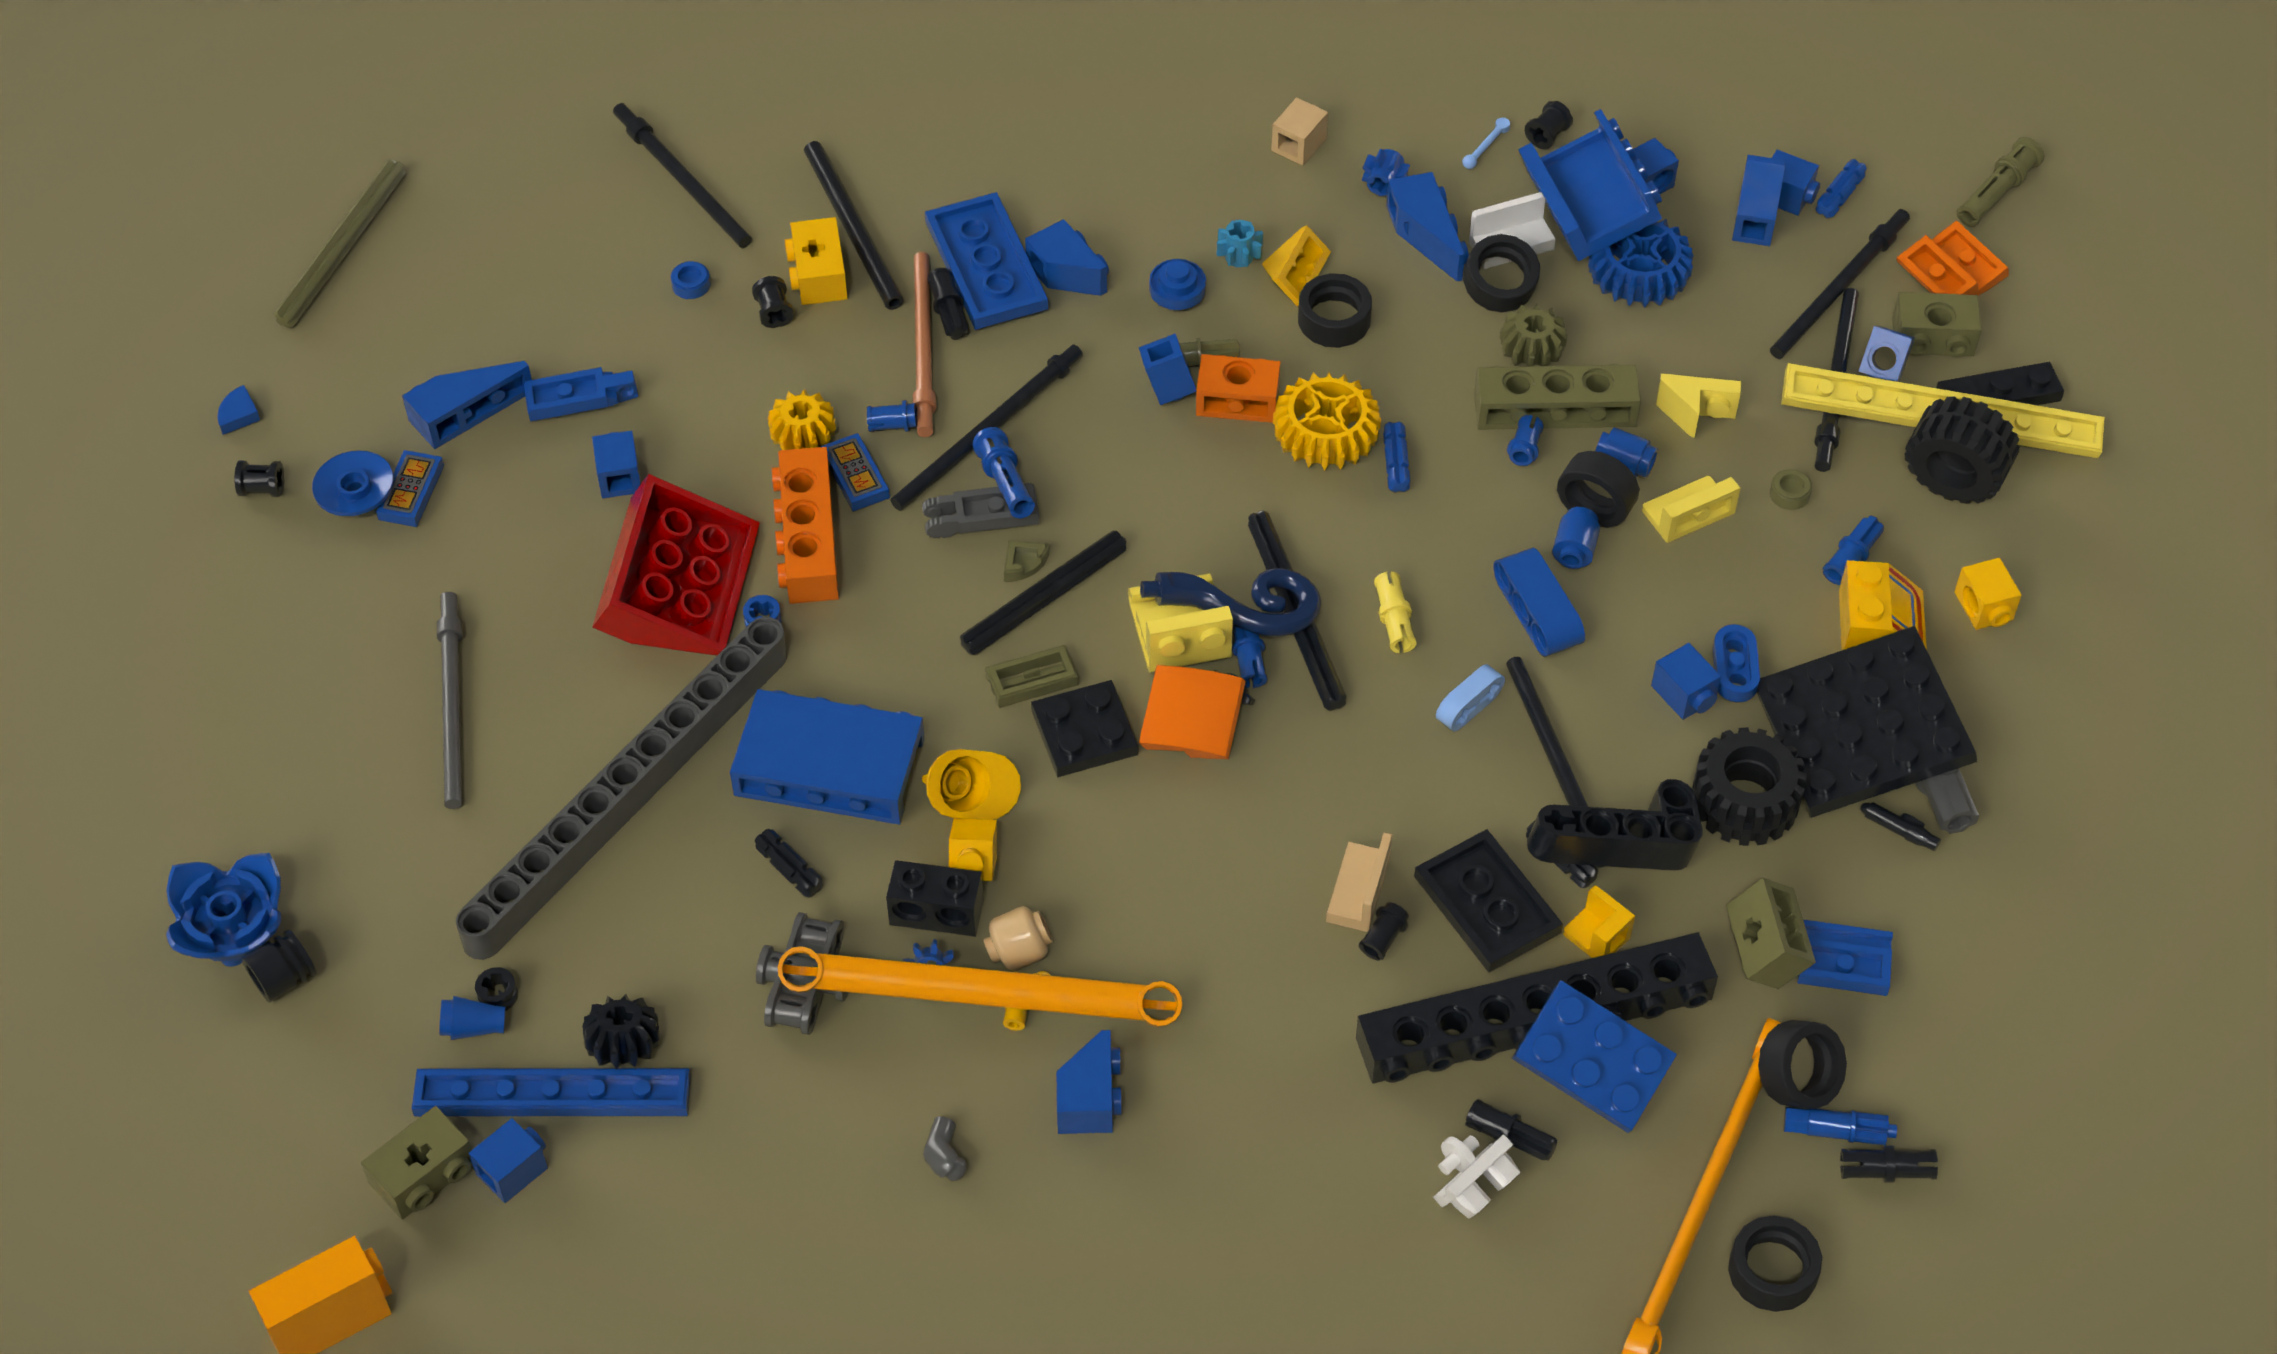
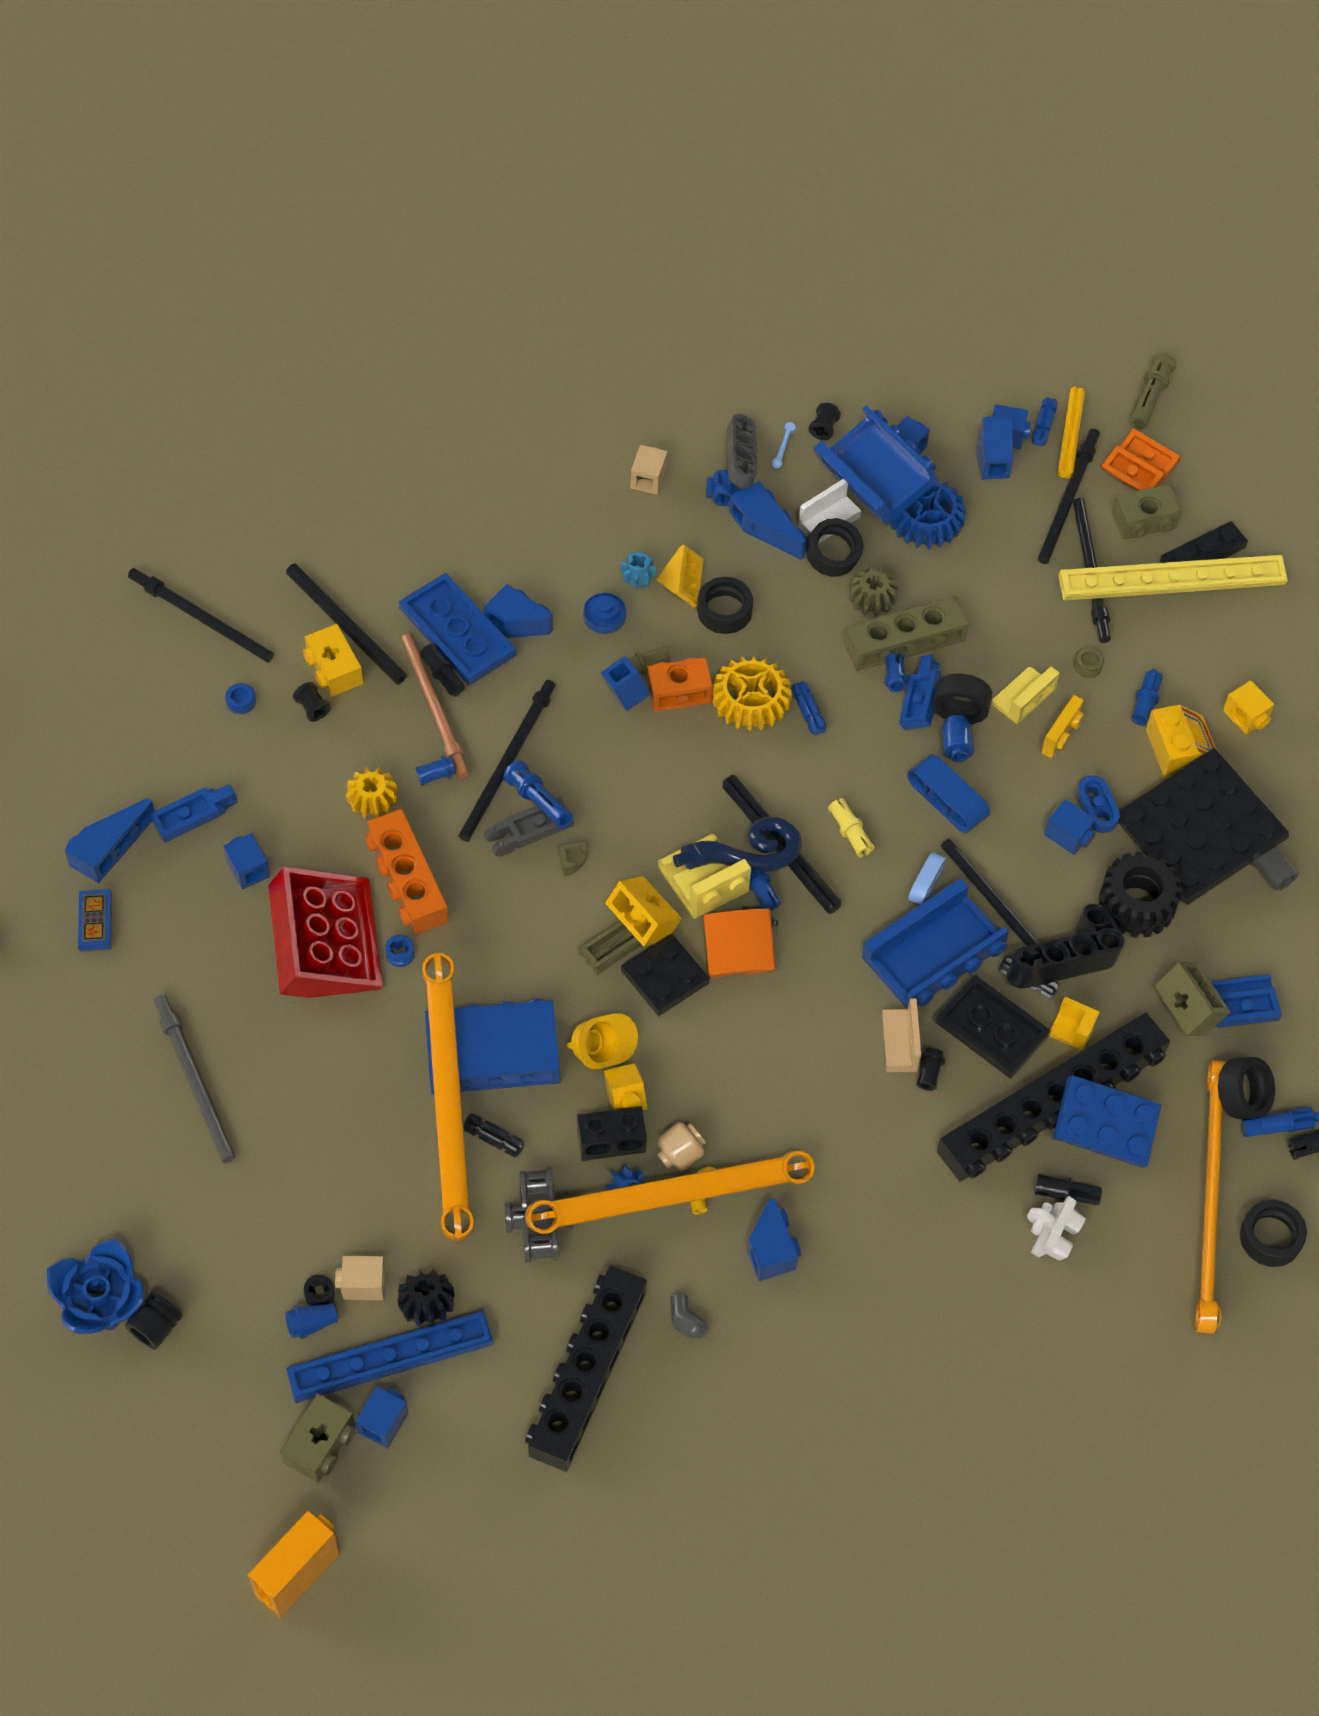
camera: 20 degrees left, 5 degrees up
(353, 483) = (48, 918): blue dish -> none
(553, 986) = (361, 1278): none -> tan brick
(720, 1262) = (560, 1447): none -> black brick
(742, 798) = (447, 1097): none -> light orange piece
(755, 653) = (350, 1122): dark grey beam -> none
(856, 472) = (425, 820): tile -> none
(1043, 592) = (597, 879): black axle -> none
(1081, 641) = (643, 910): none -> yellow brick
(1424, 133) = (742, 451): none -> dark grey beam
(1448, 780) = (933, 945): none -> blue panel
(1539, 485) = (920, 695): none -> blue hinge
(1630, 450) = (969, 663): blue brick -> none
(1689, 396) = (998, 611): light yellow slope -> none
(1719, 559) = (1058, 735): none -> yellow plate
(1872, 208) = (1071, 432): none -> yellow axle
(1885, 337) = (1118, 533): brick -> none
(1903, 825) = (1249, 893): black piece -> none
(1962, 450) = (1200, 606): black tyre -> none

